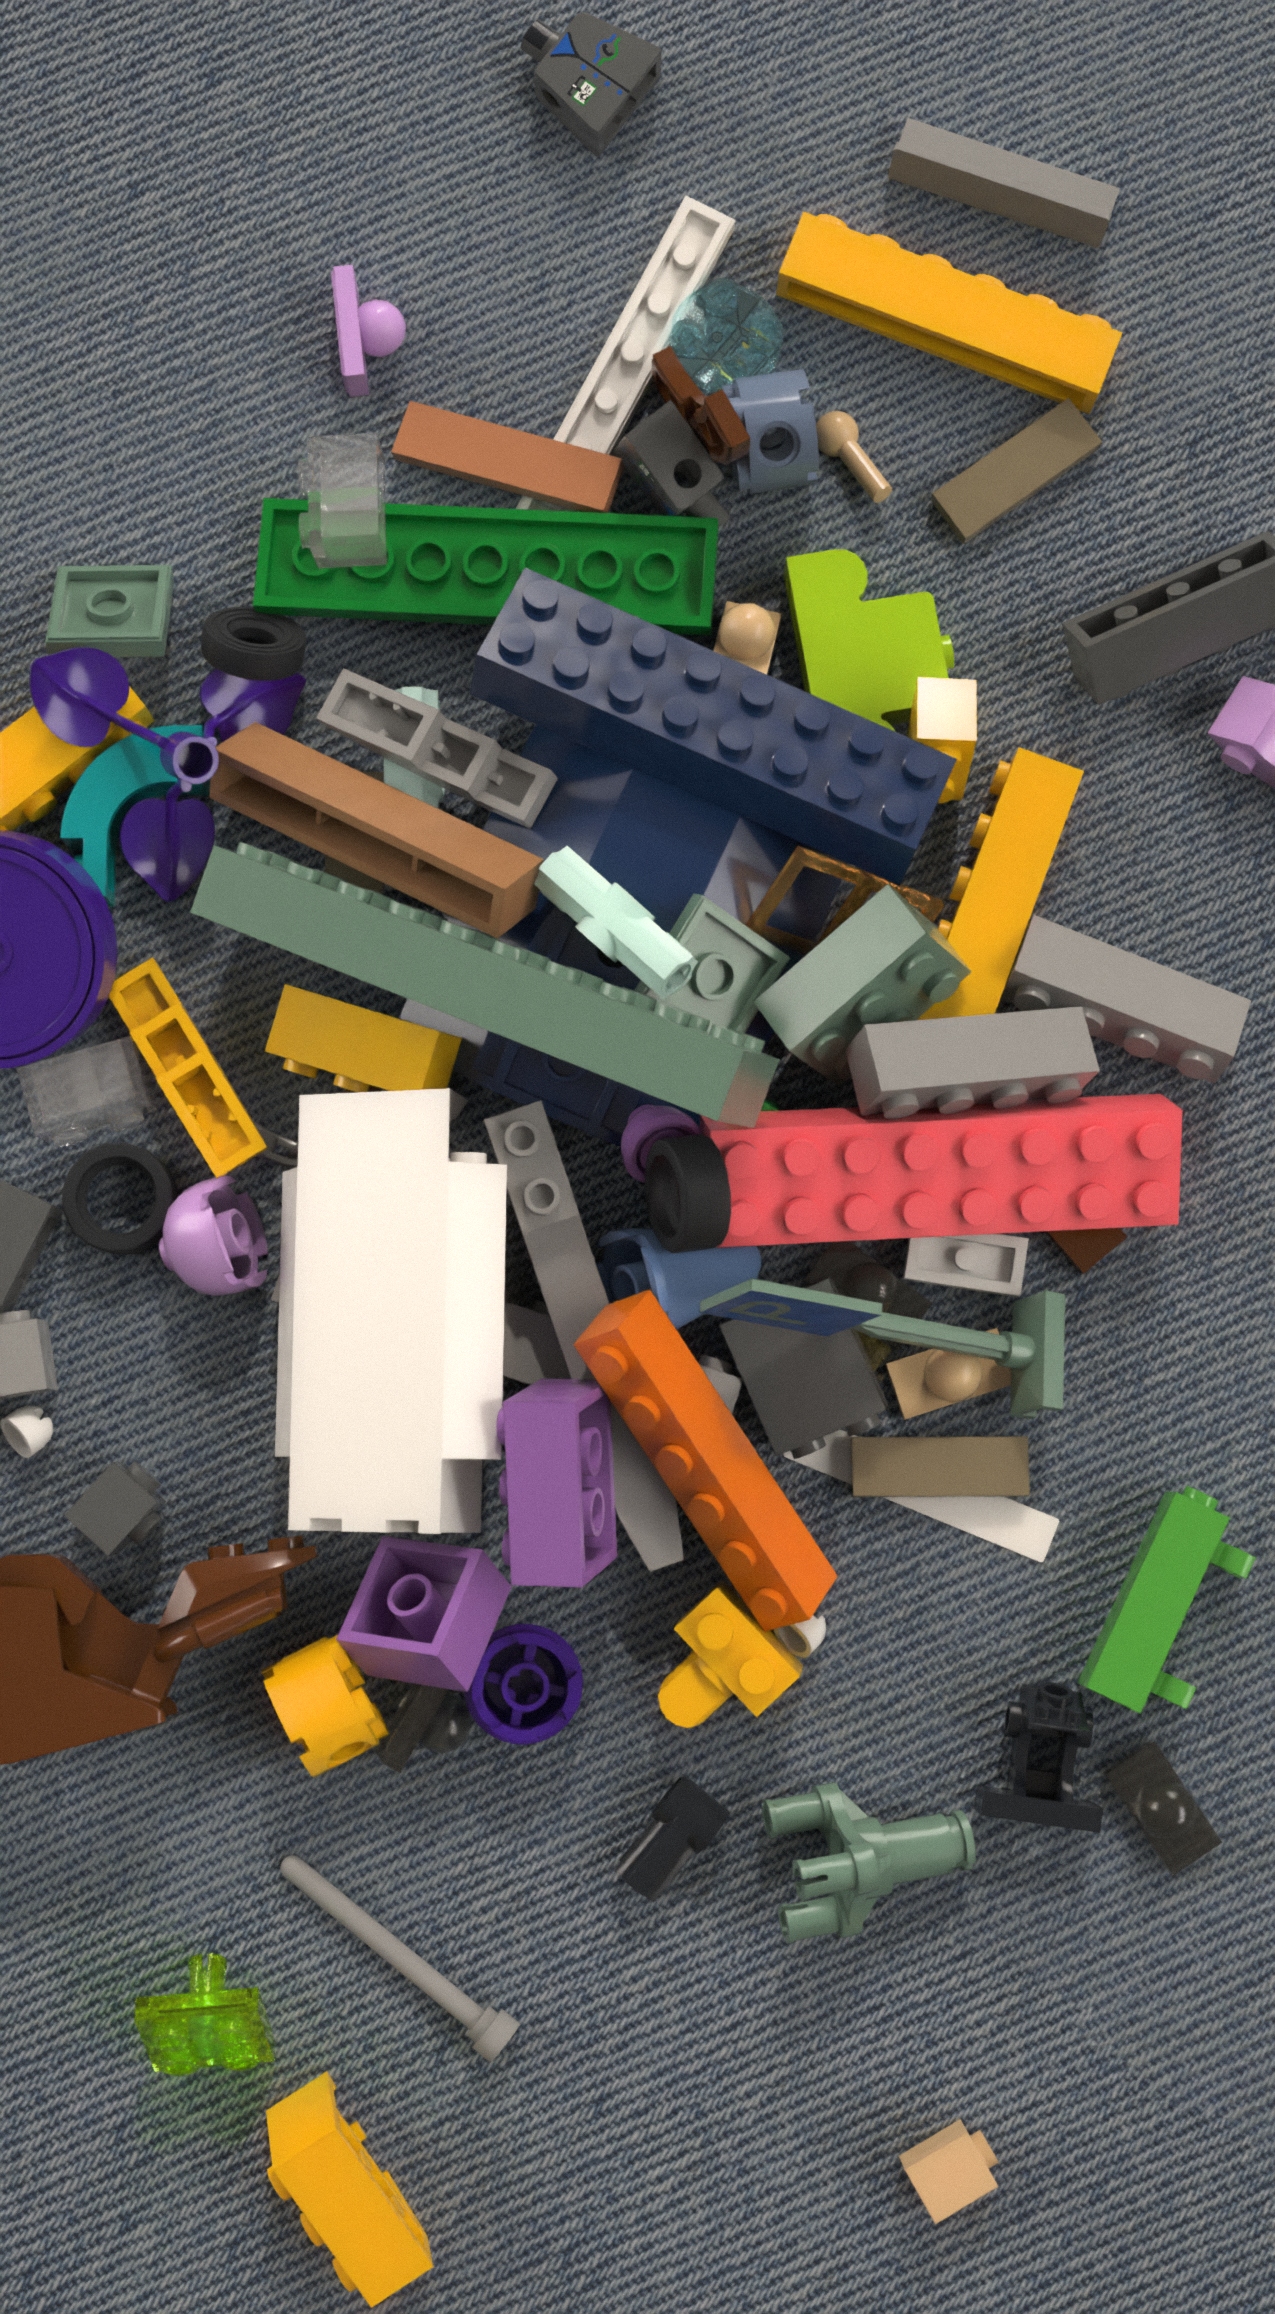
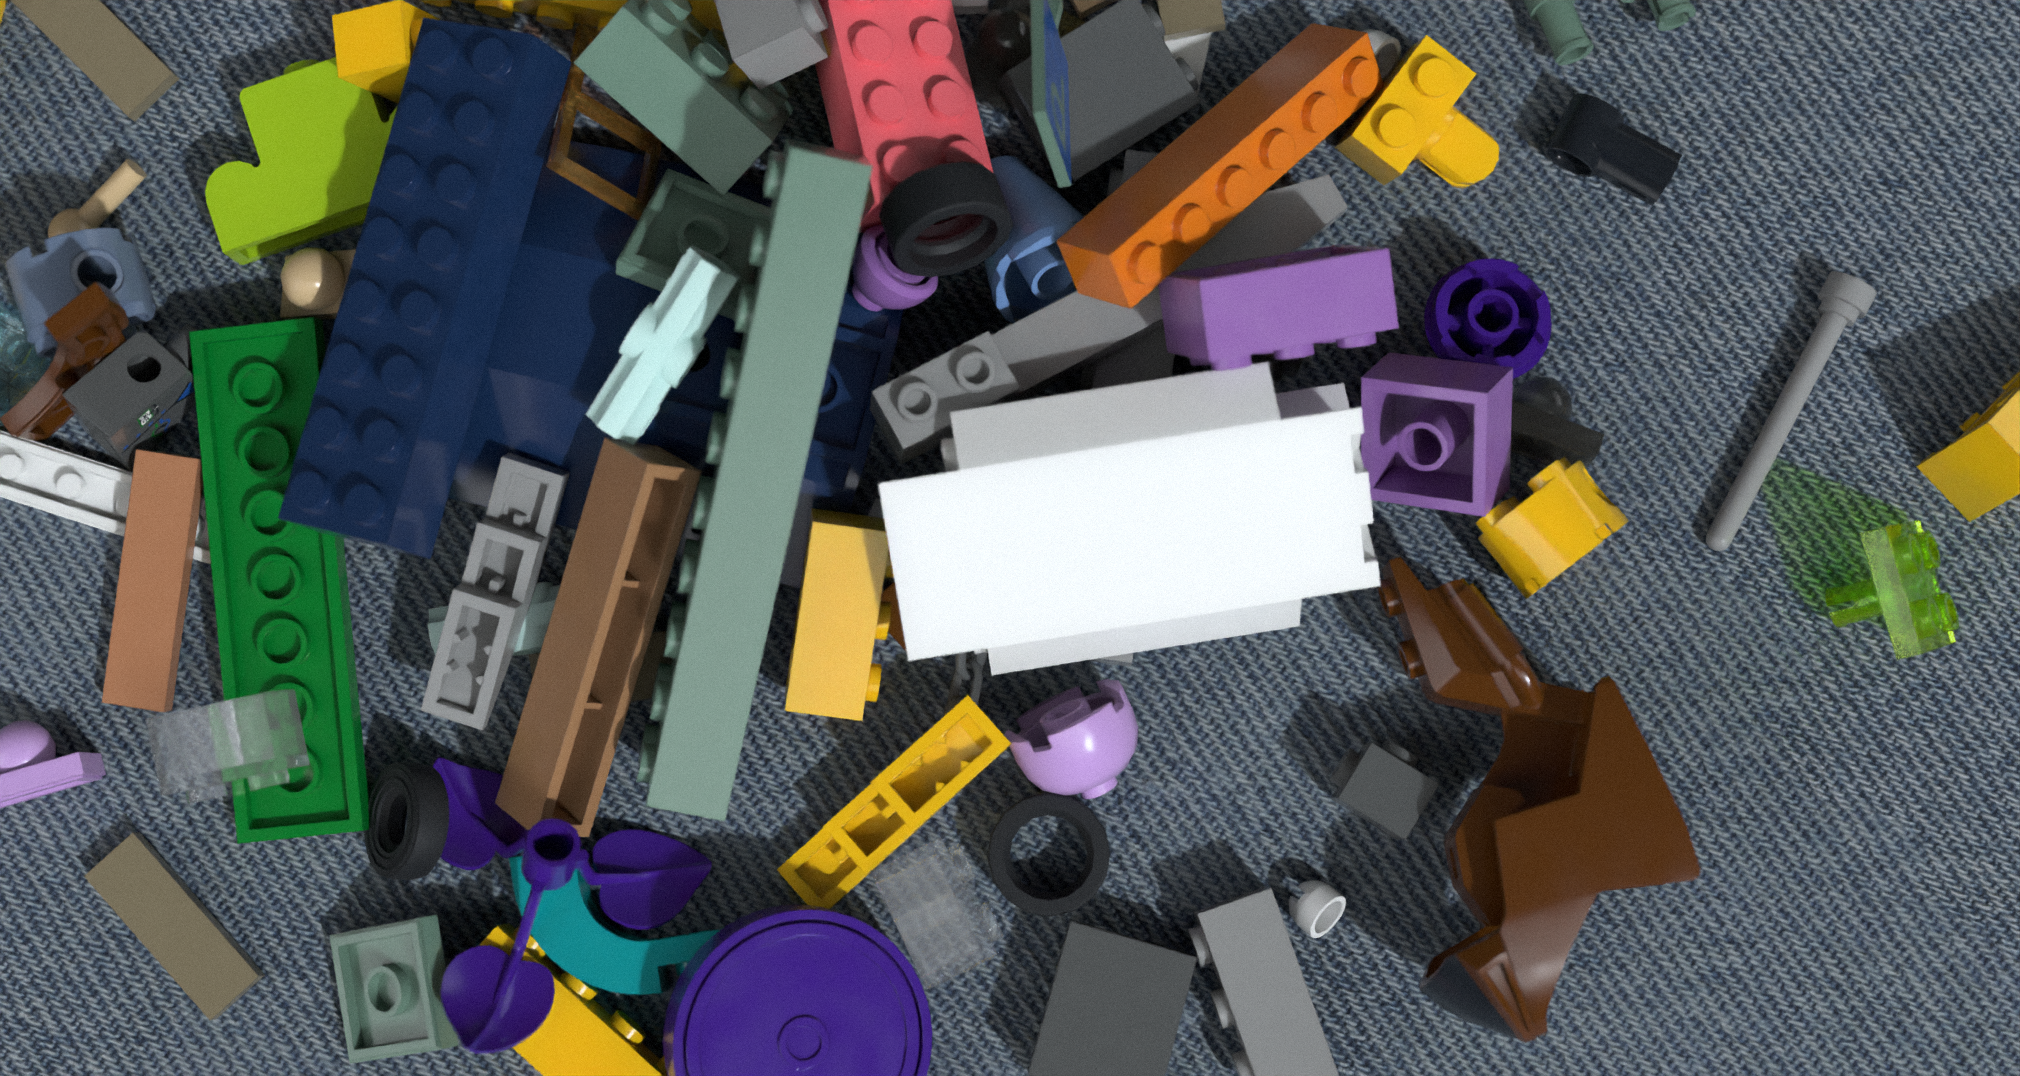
camera: 95 degrees left, 0 degrees up
(205, 436) = (174, 925): none -> dark tan tile

